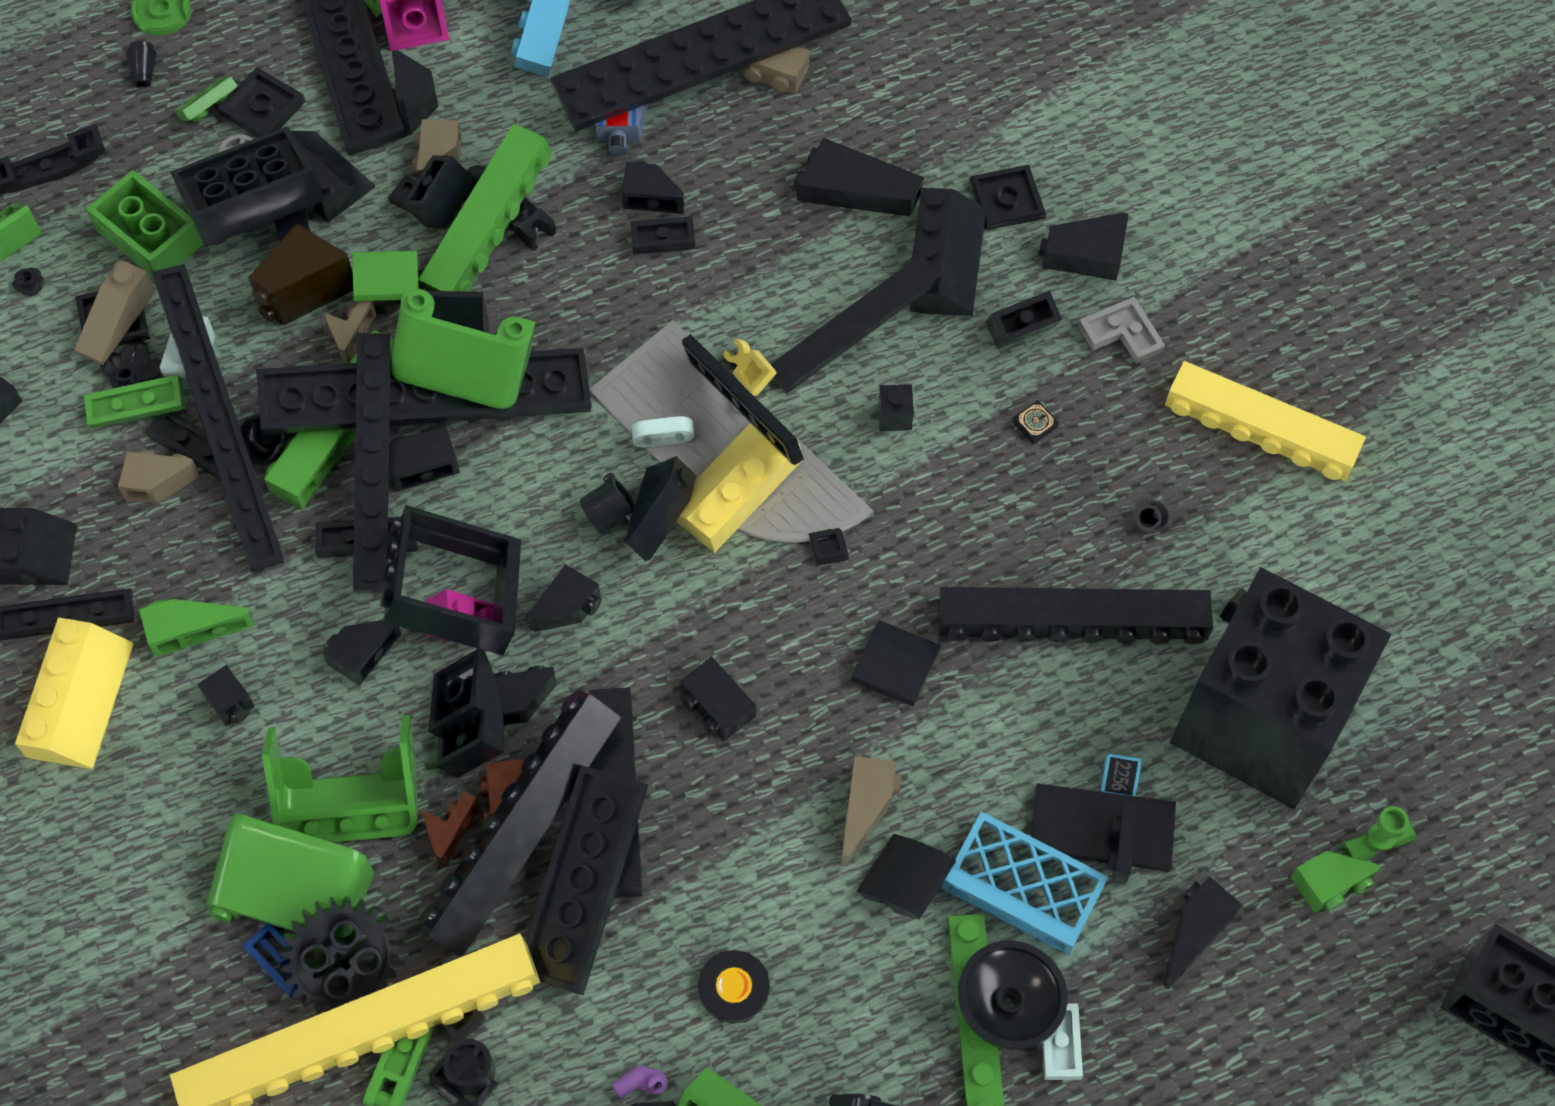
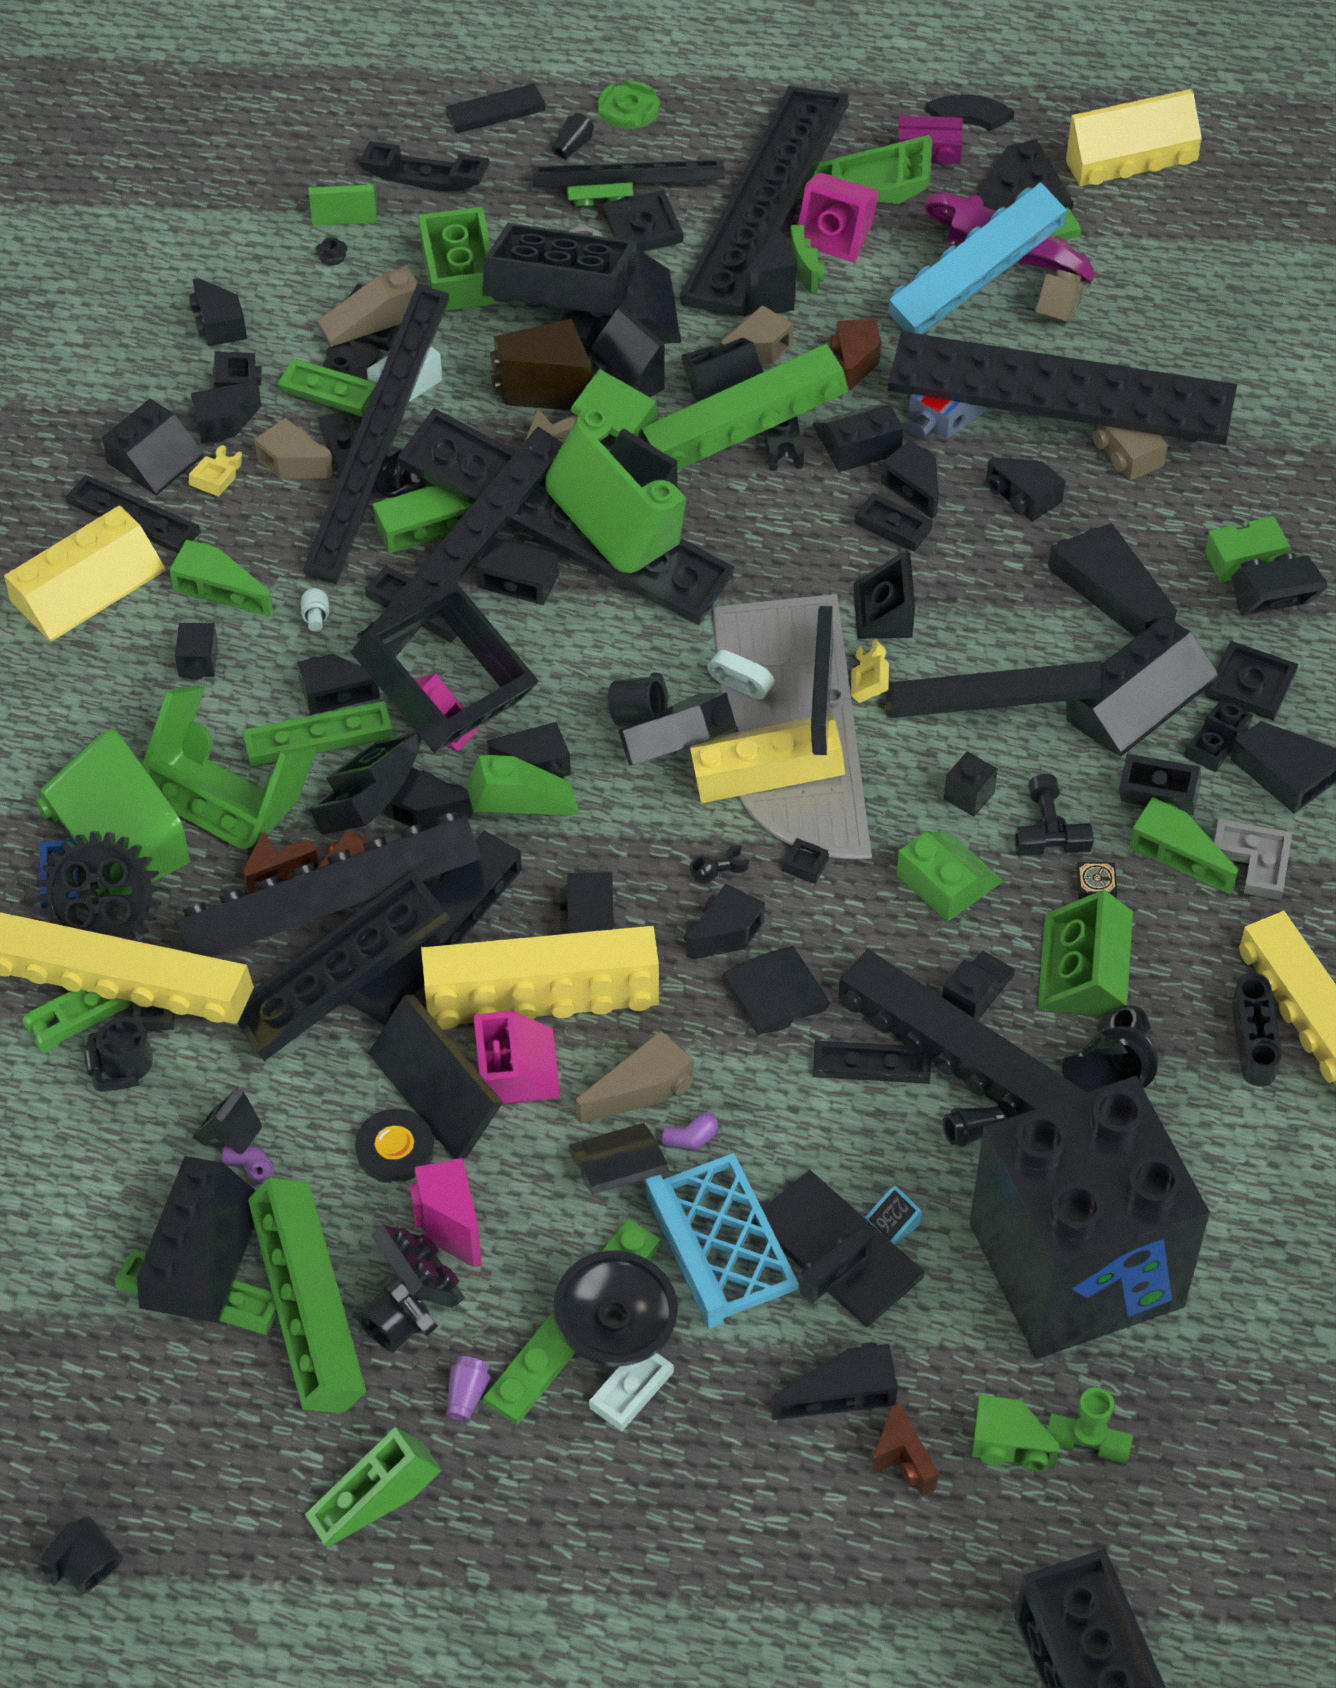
camera: 40 degrees right, 10 degrees down
(47, 427) = (232, 364): none -> black brick
(54, 76) = (495, 108): none -> black tile
(64, 477) = (225, 410): none -> black slope
(103, 534) = (215, 474): none -> light yellow plate
(212, 69) = (628, 173): none -> black tile
(284, 592) = (312, 604): none -> light aqua cylinder
(357, 222) = (630, 353): none -> black slope
(383, 698) = (322, 731): none -> bright green plate
(420, 55) = (806, 258): none -> bright green slope
(515, 105) = (857, 348): none -> copper slope
(579, 179) = (860, 436): none -> black slope
(583, 639) = (518, 787): none -> bright green slope
(602, 1065) = (231, 1122): none -> black slope
(714, 301) = (886, 600): none -> black slope
(725, 913) = (435, 1077): none -> black tile
(732, 144) = (1026, 484): none -> black slope
(733, 778) = (542, 975): none -> light yellow brick
(765, 855) = (516, 1057): none -> dark pink slope
(767, 599) = (706, 868): none -> black arm
(821, 635) = (726, 925): none -> black slope
(831, 1011) = (446, 1209): none -> dark pink slope
(844, 1070) = (418, 1265): none -> black plate
(924, 103) = (1230, 547): none -> bright green brick
(935, 489) = (945, 873): none -> bright green slope
(936, 816) = (694, 1135): none -> medium lavender arm
(973, 112) = (1277, 584): none -> black slope
(976, 404) = (1051, 829): none -> black bar
(1003, 670) = (870, 1062): none -> black tile
(1021, 254) = (1216, 737): none -> black slope
(1028, 559) = (977, 984): none -> black arch
(1070, 355) = (1178, 842): none -> bright green slope
(1080, 486) = (1086, 956): none -> bright green slope
(1112, 668) = (967, 1124): none -> black cone
(1174, 557) = (1112, 1057): none -> black helmet
(1233, 461) = (1263, 1049): none -> black beam
(1269, 940) = (902, 1444): none -> copper slope

